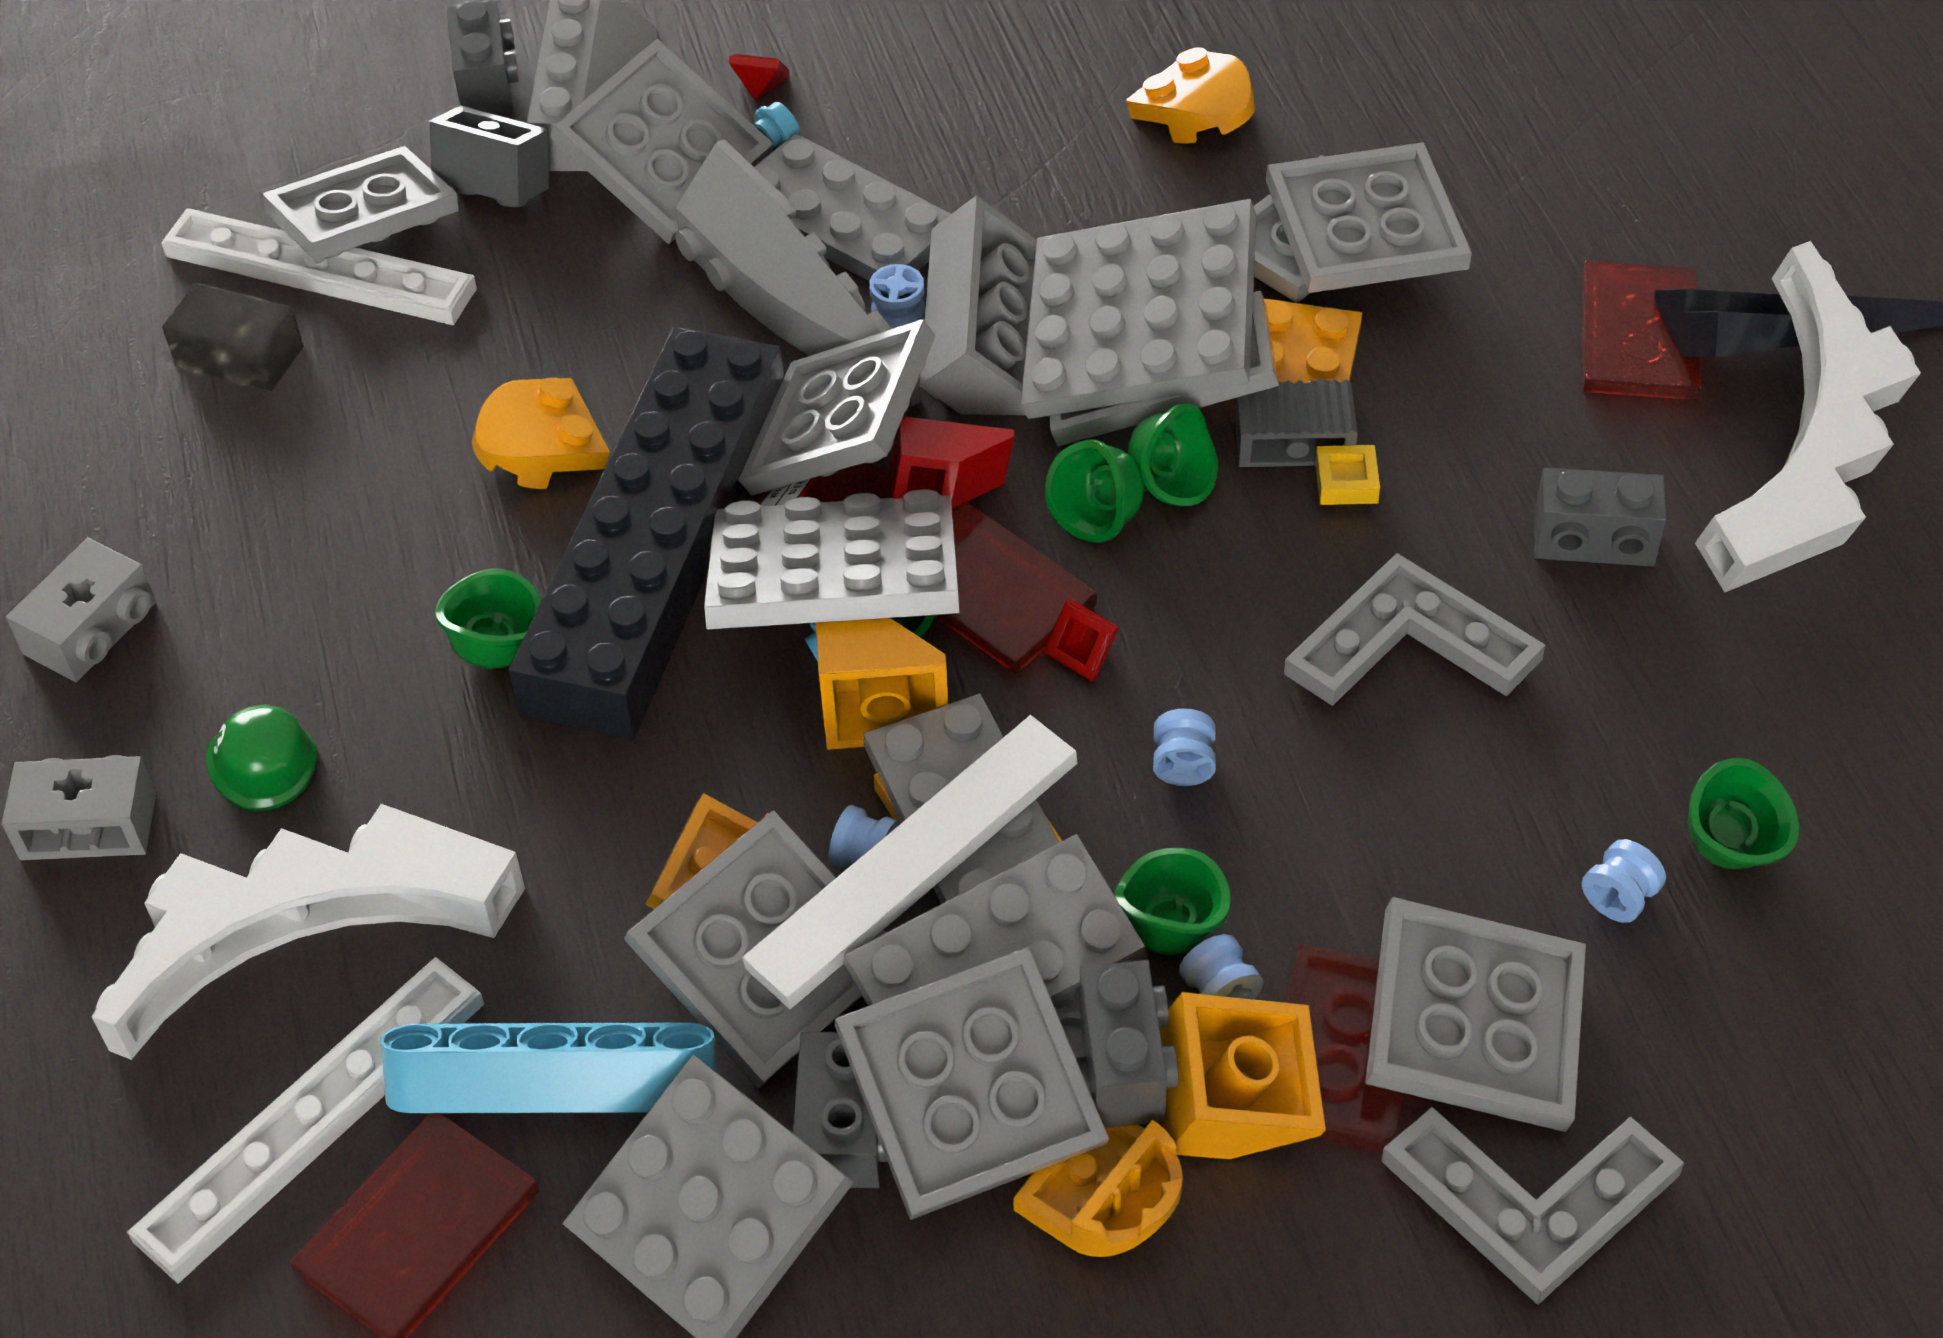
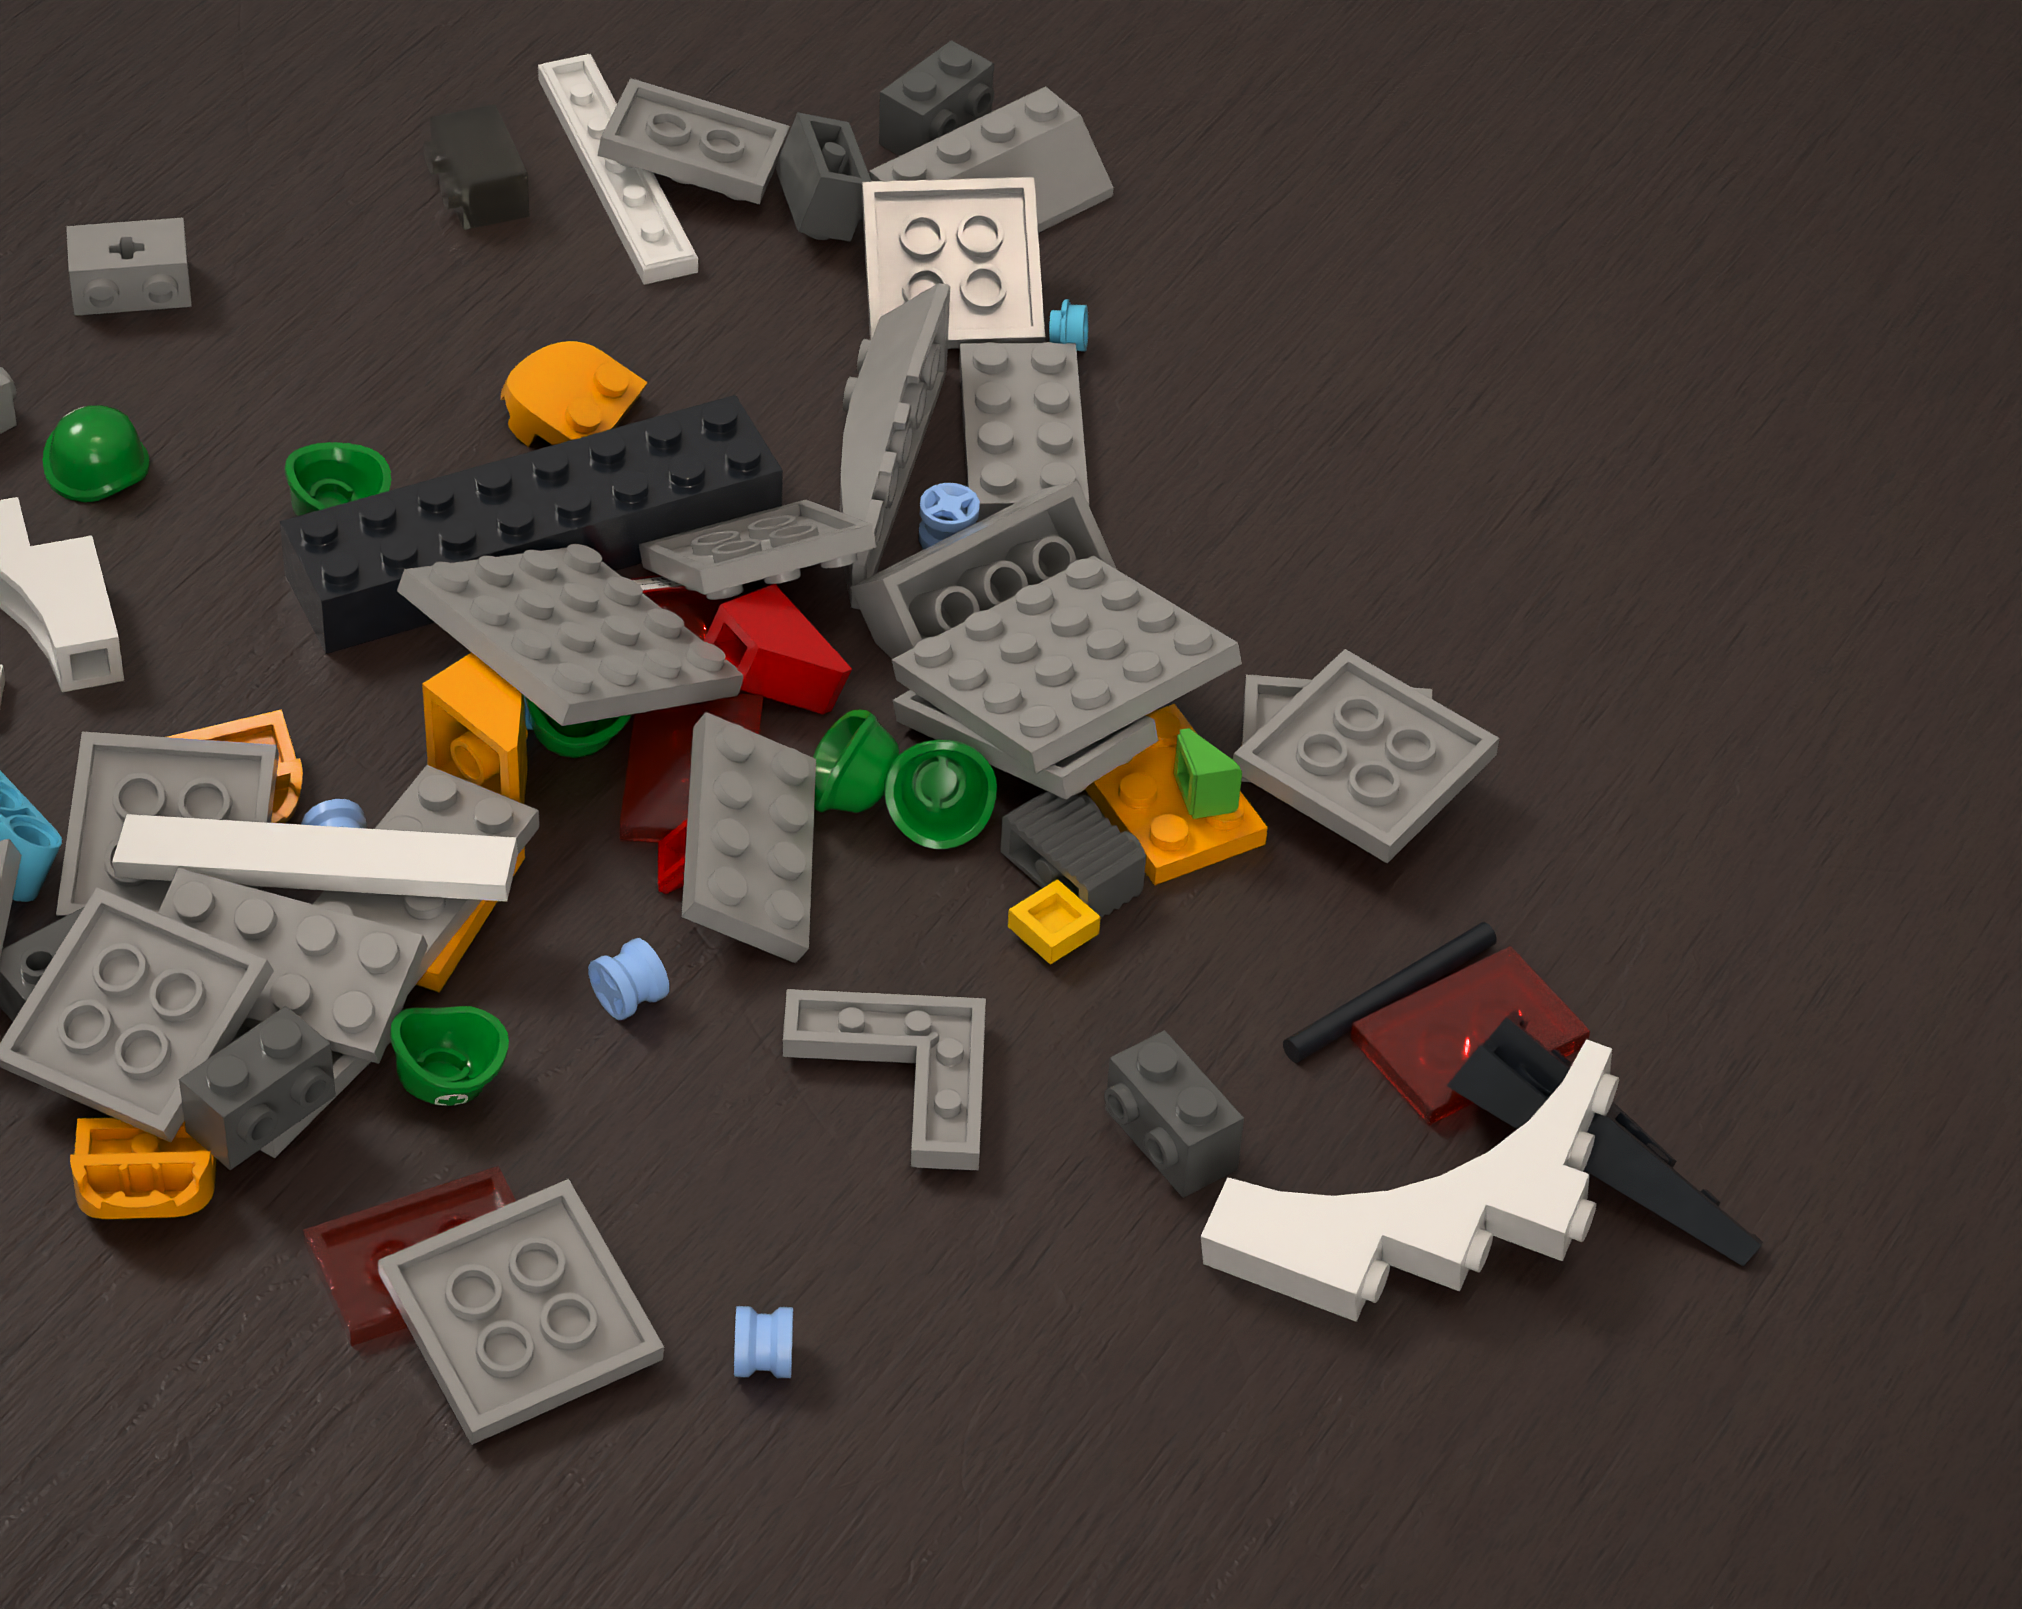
camera: 45 degrees right, 5 degrees down
(758, 73) = (1123, 279): red slope -> none
(1115, 589) = (749, 838): none -> light grey plate
(1196, 95) = (1424, 569): light orange slope -> none
(1218, 969) = (411, 1130): light blue wheel -> none
(1241, 1076) = (307, 1183): light orange slope -> none
(1311, 305) = (1205, 776): none -> bright green slope
(1526, 1237) = (343, 1477): light grey plate -> none
(1564, 347) = (1390, 991): none -> black bar
(1741, 816) = (902, 1376): green helmet -> none

